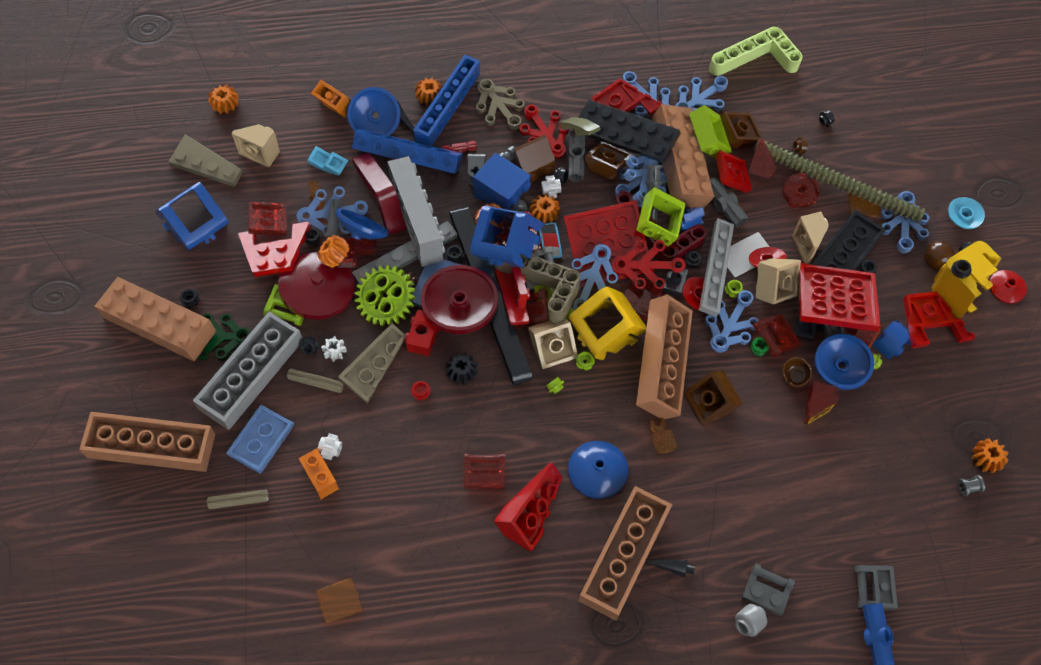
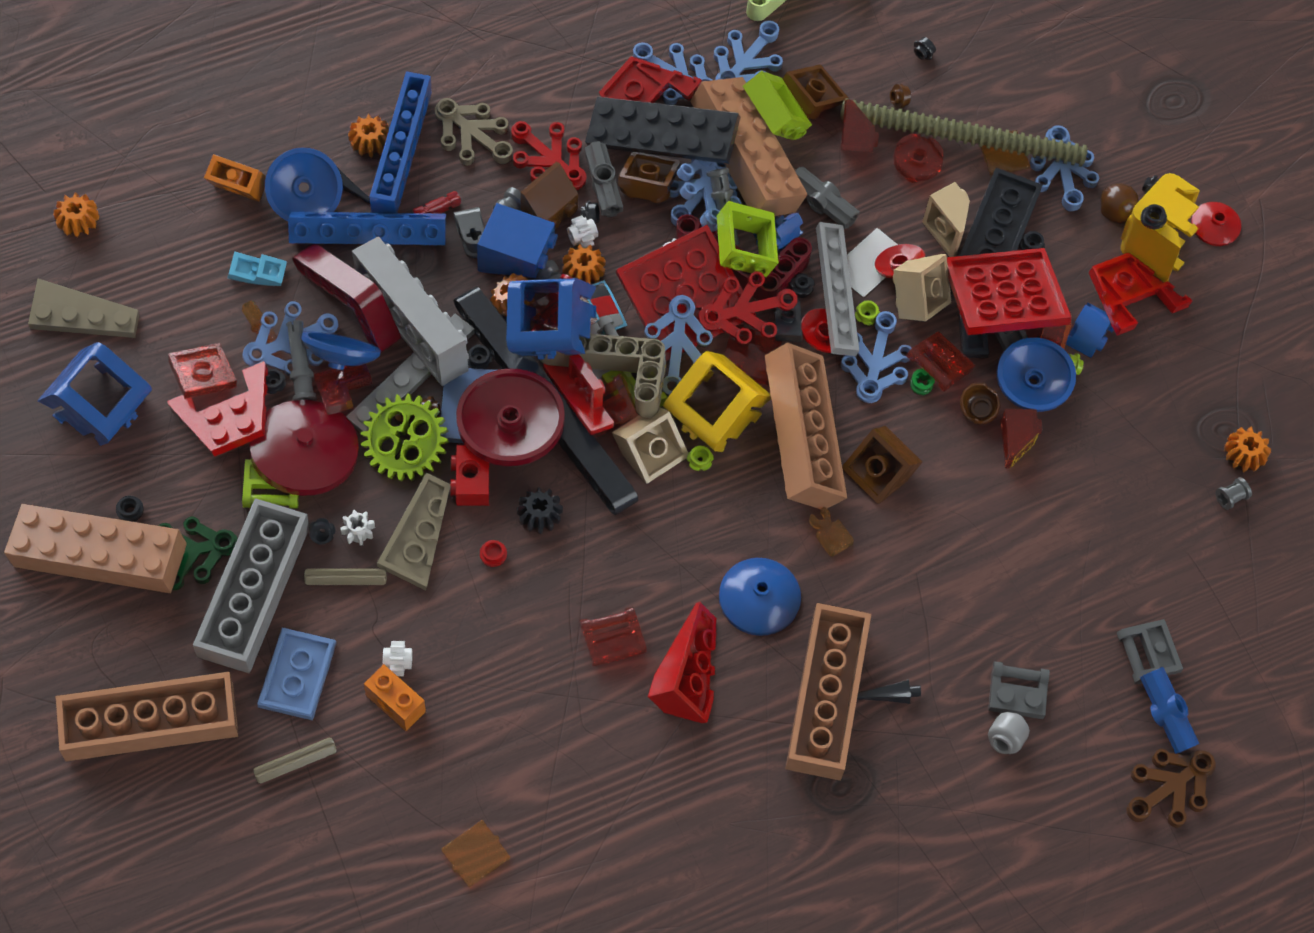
camera: 20 degrees left, 0 degrees up
(257, 144) = (151, 269): tan slope -> none
(333, 251) = (316, 394): orange gear -> none
(555, 386) = (671, 501): lime plate -> none
(581, 126) = (601, 137): olive slope -> none
(733, 171) = (822, 153): red plate -> none
(972, 212) = (1142, 130): medium azure dish -> none

